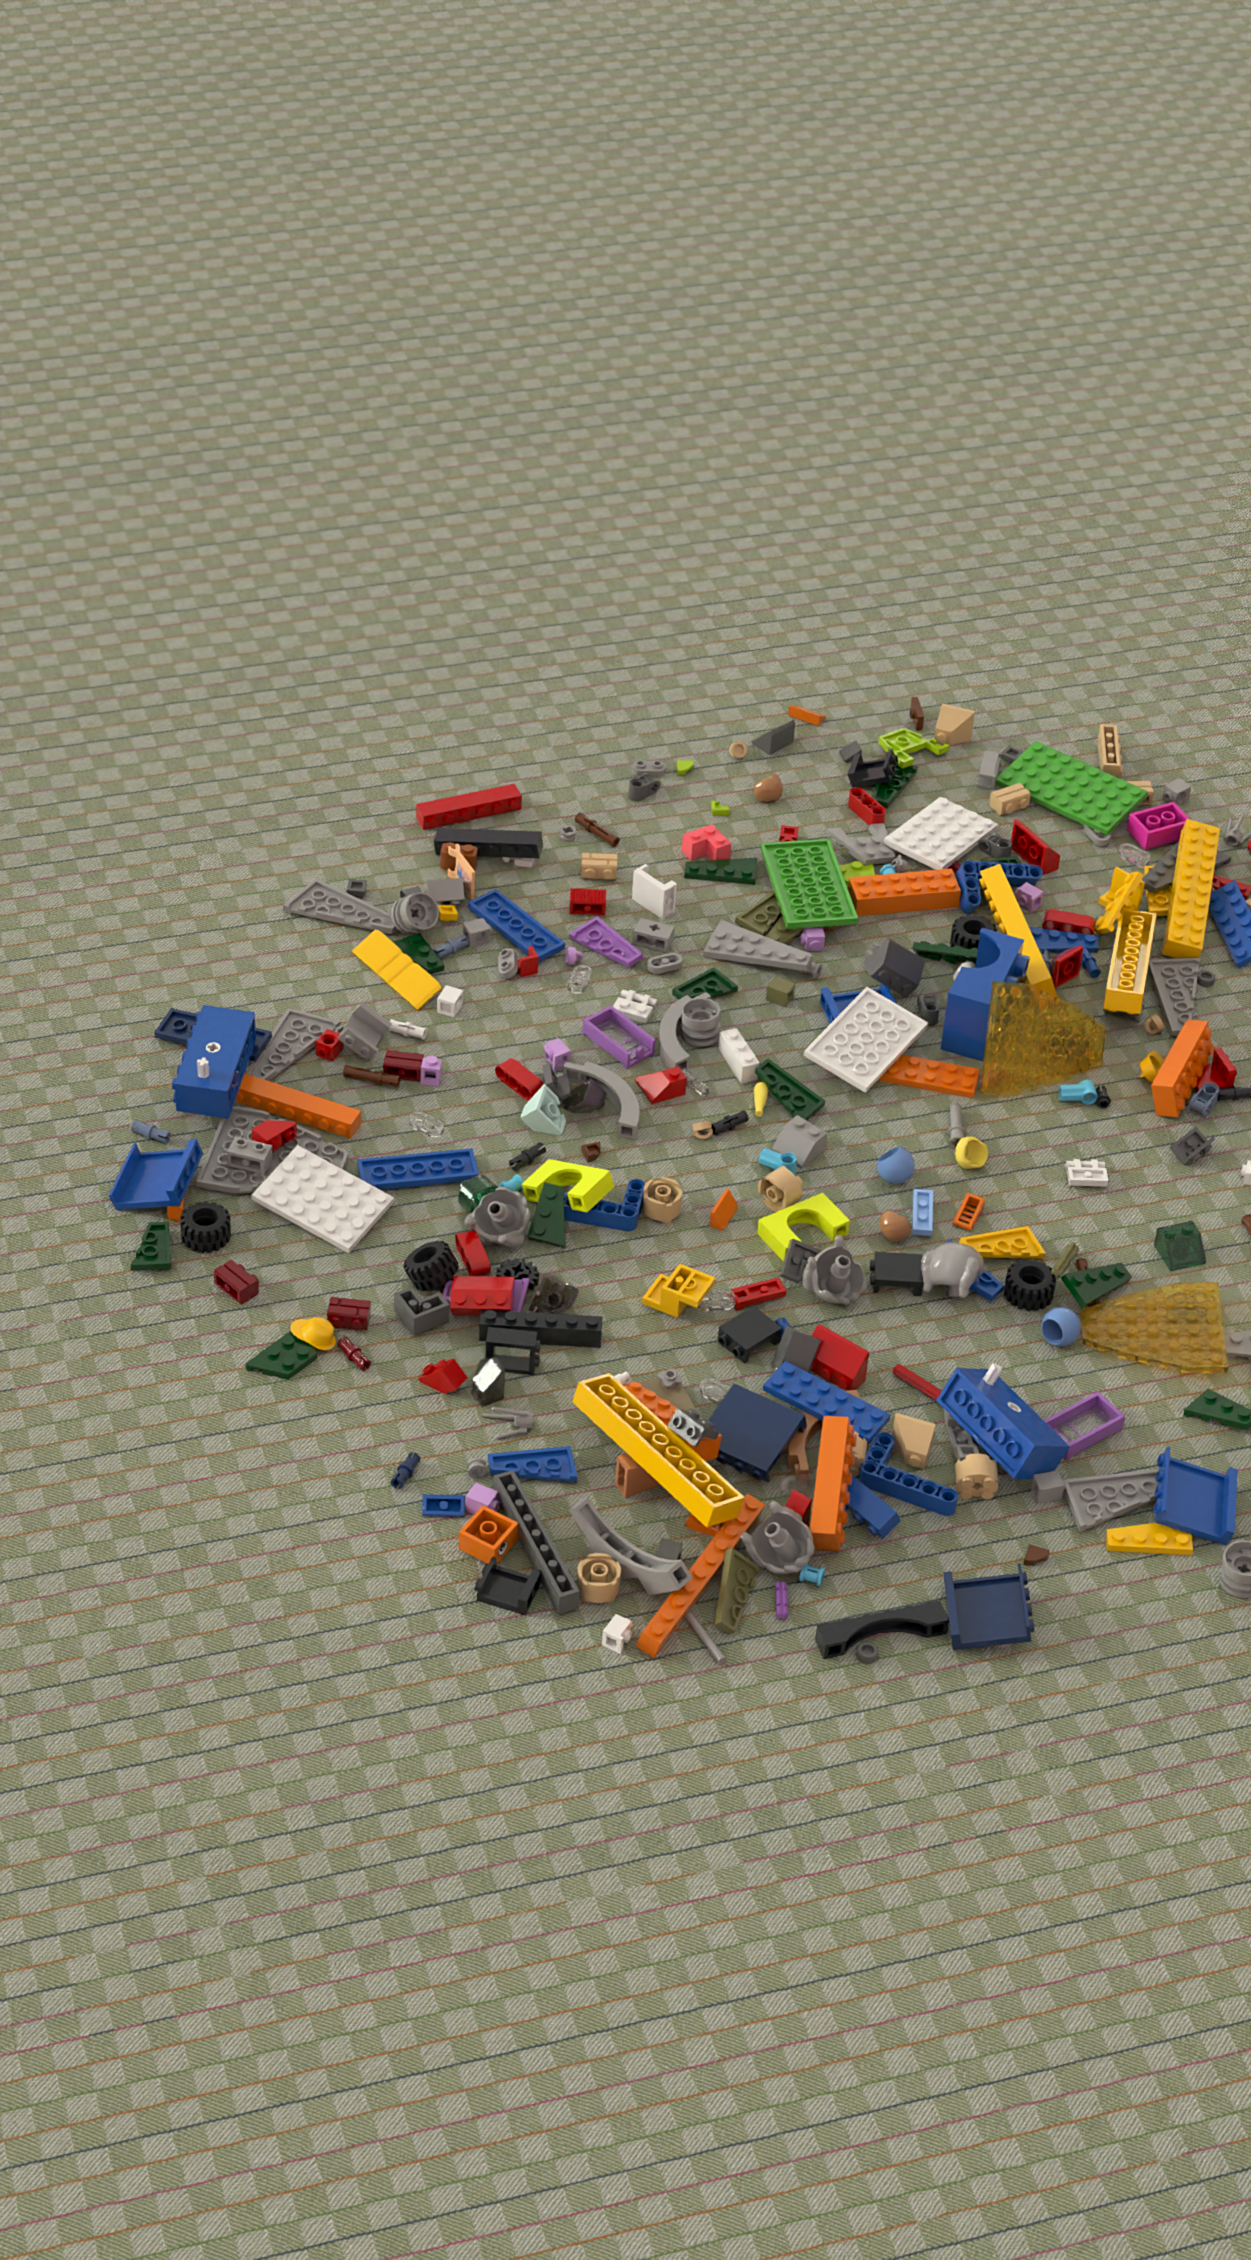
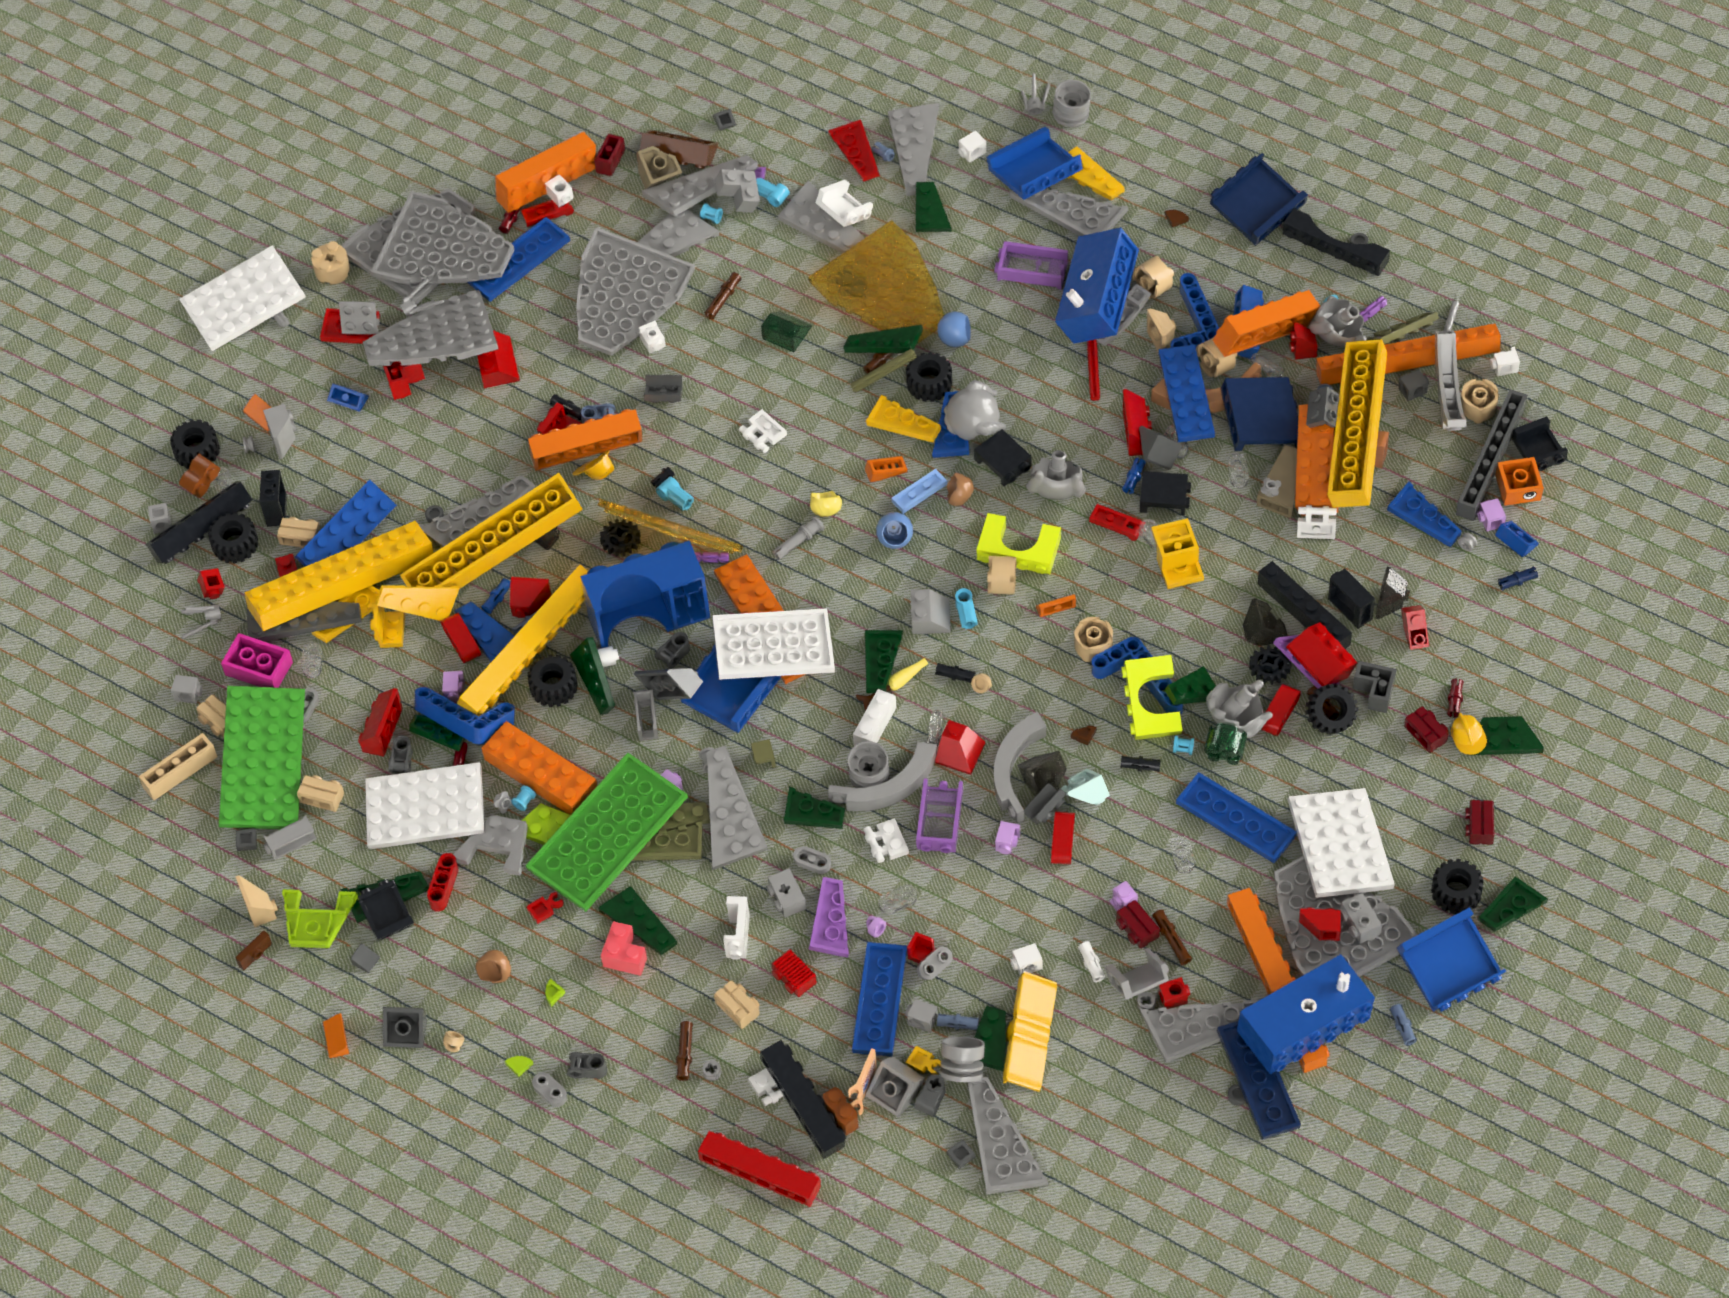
camera: 125 degrees left, 15 degrees up
(521, 1419) = (1397, 552): light grey plant -> none
(796, 1260) = (1058, 517): dark grey plate -> none

